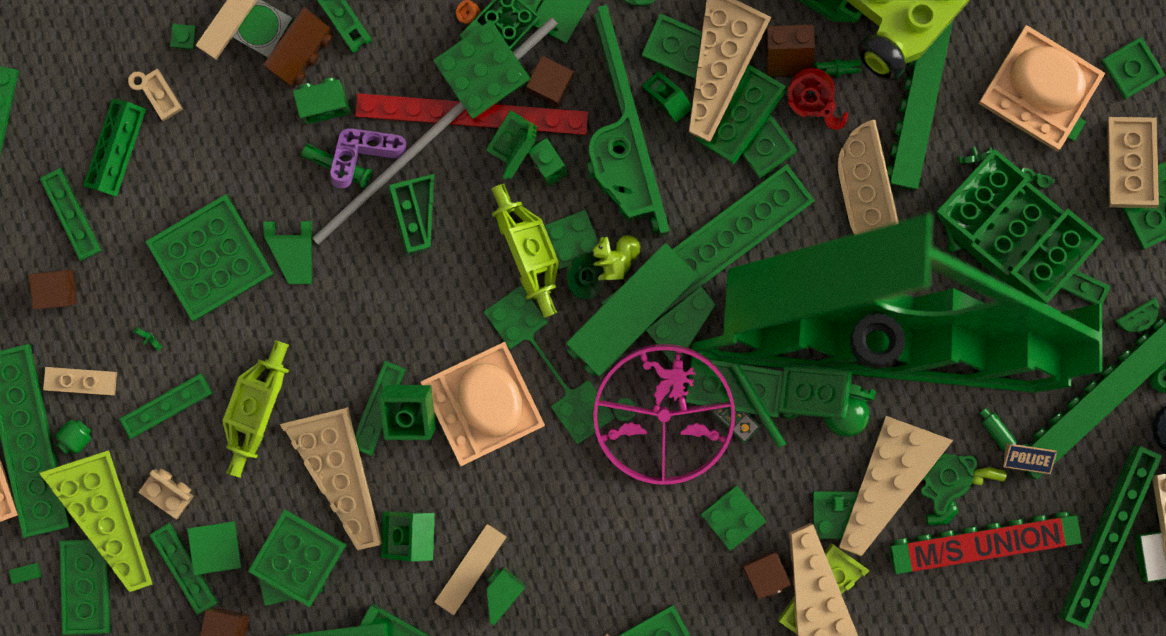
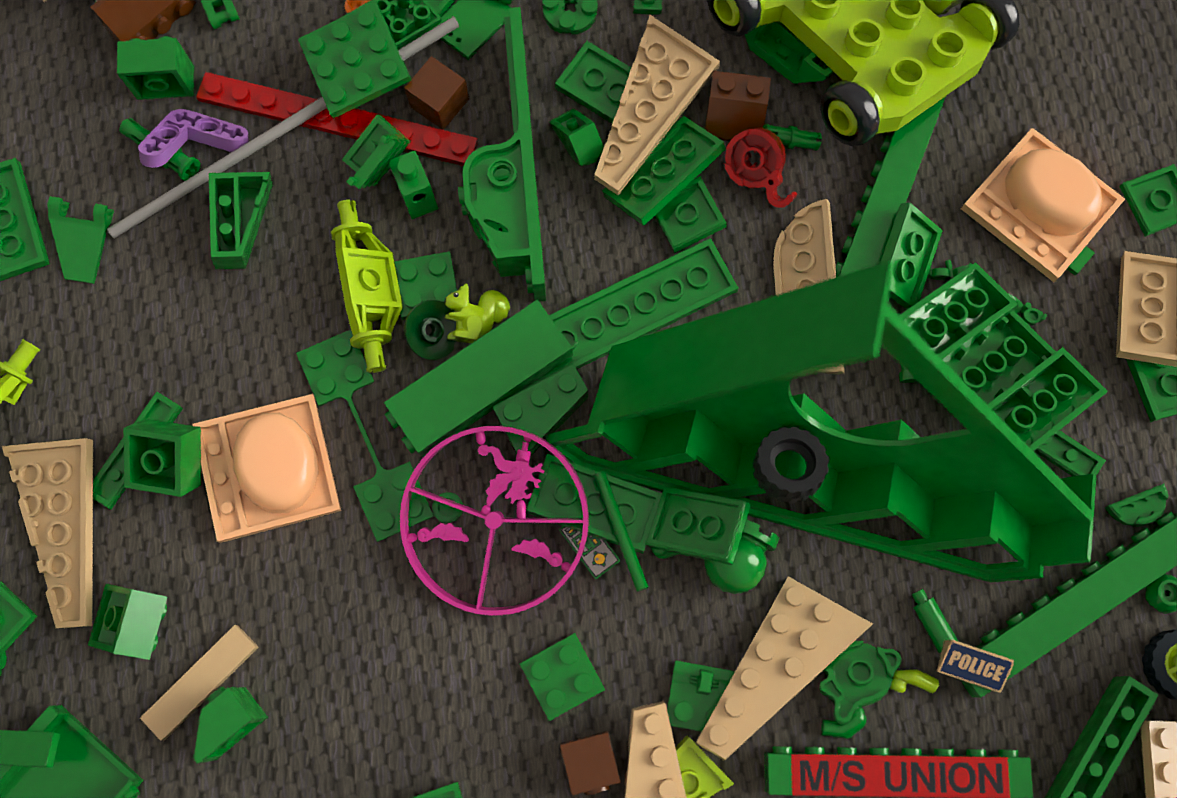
camera: 15 degrees right, 10 degrees down
(942, 153) = (912, 251): none -> green plate

